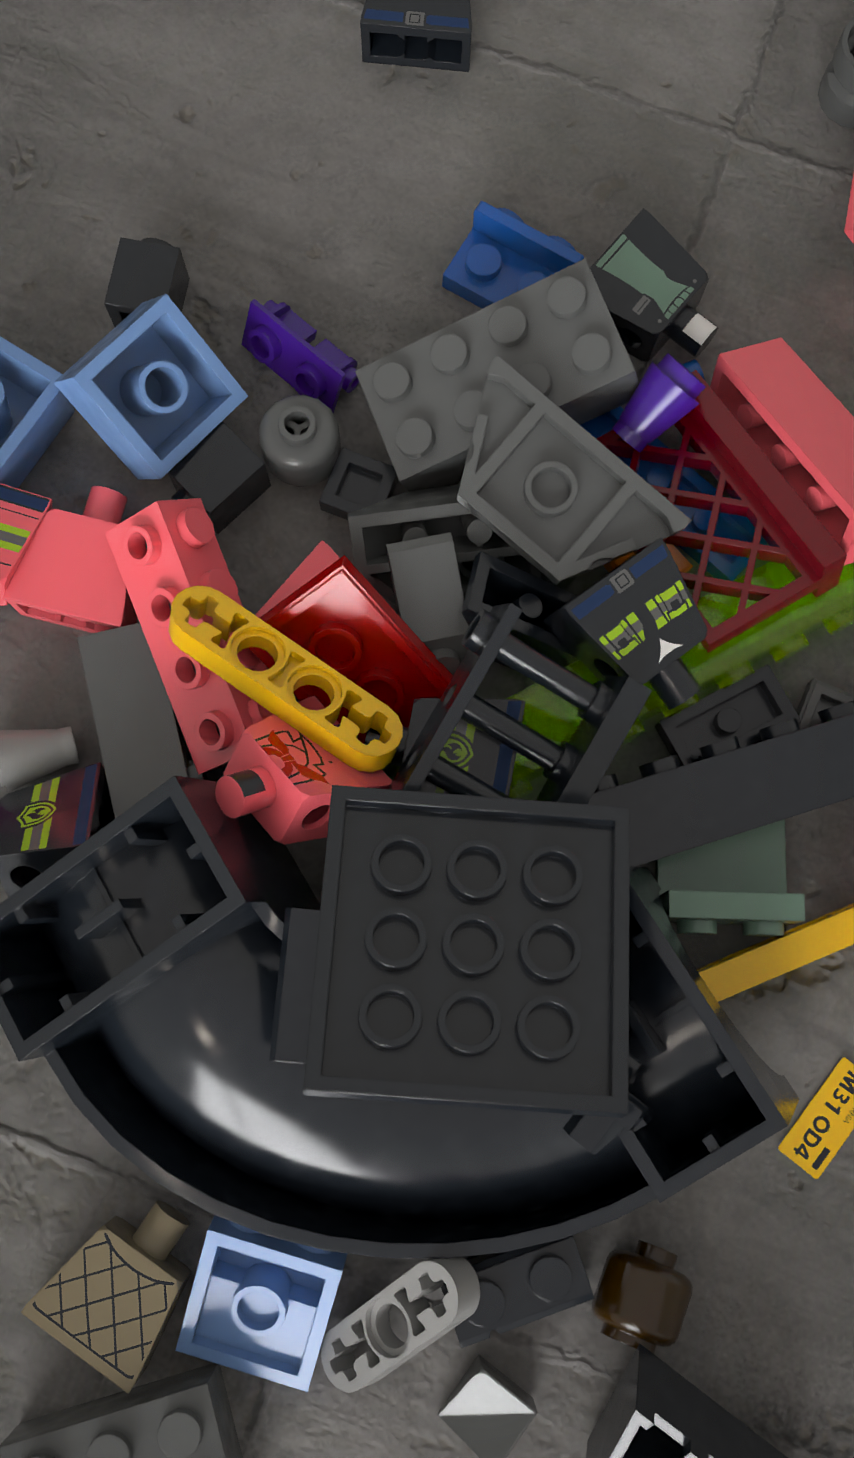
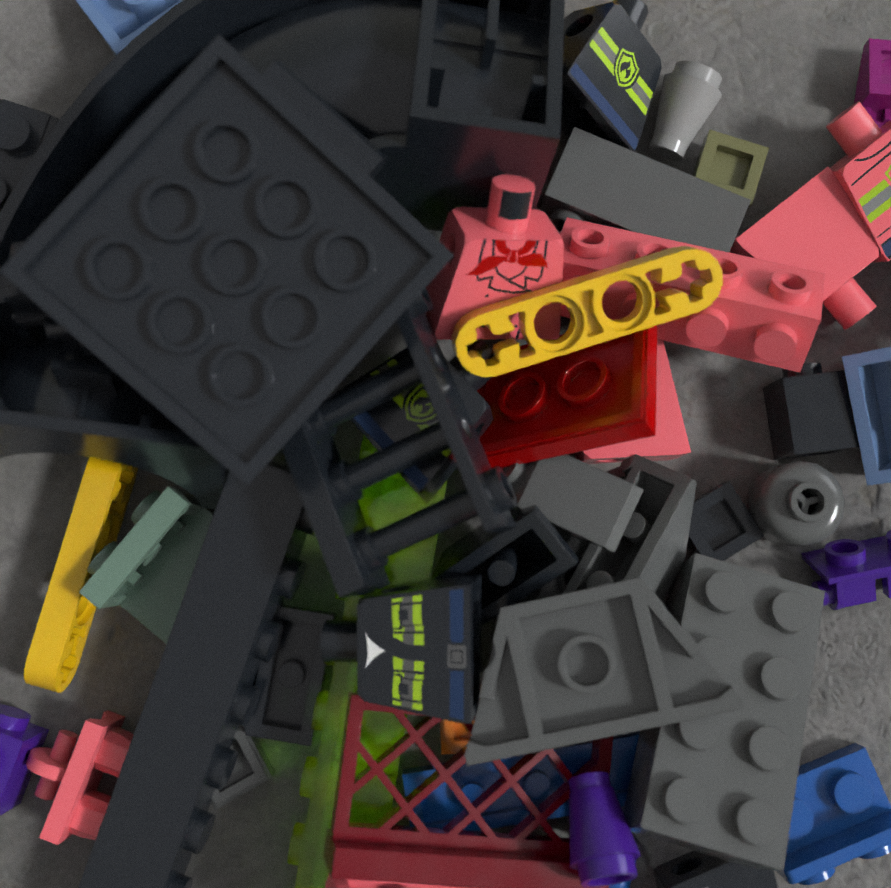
camera: 130 degrees right, 5 degrees up
(54, 681) = (731, 163): none -> olive plate
(424, 1322) = (45, 53): light grey beam -> none

